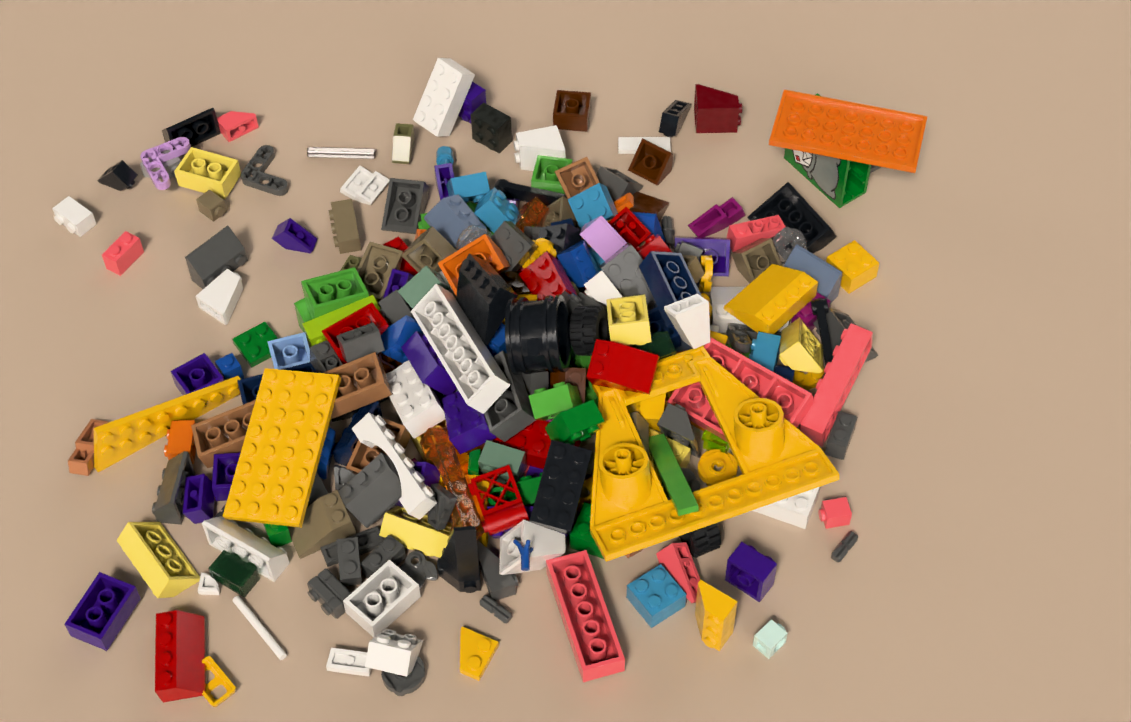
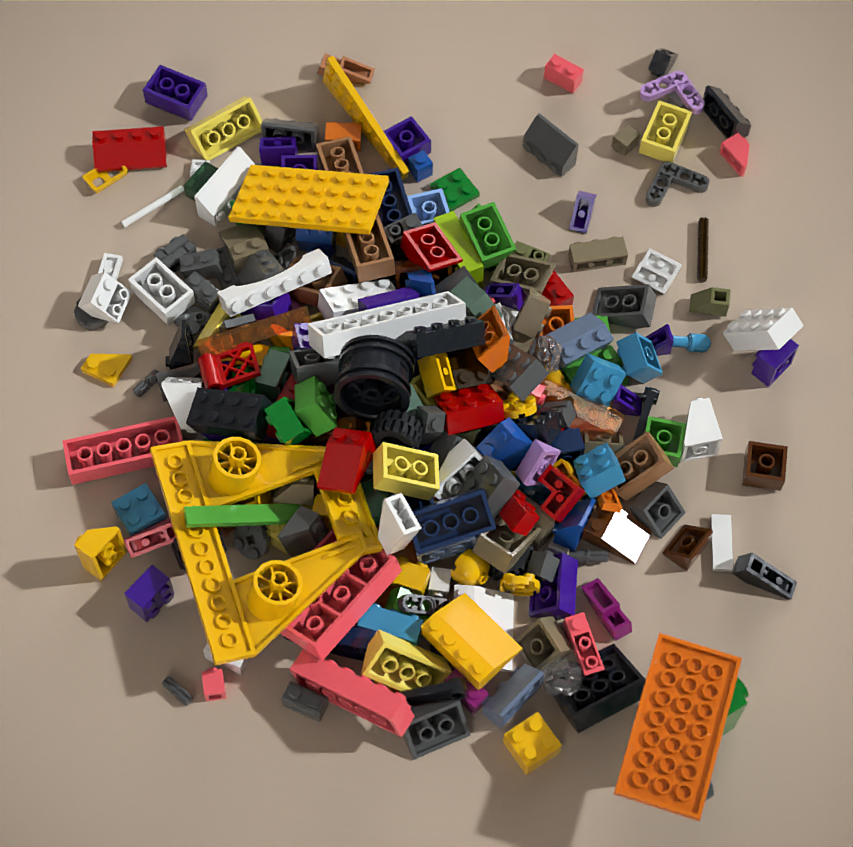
camera: 90 degrees right, 10 degrees up
(74, 216) = (611, 32): white brick -> none
(221, 296) = (509, 155): white slope -> none
(360, 342) = (406, 247): dark grey brick -> none
(491, 128) = (731, 382): pearl dark grey brick -> none
(525, 554) = (162, 382): blue bar -> none
(716, 110) = (764, 614): dark red slope -> none
(770, 638) = (83, 608): light aqua brick -> none

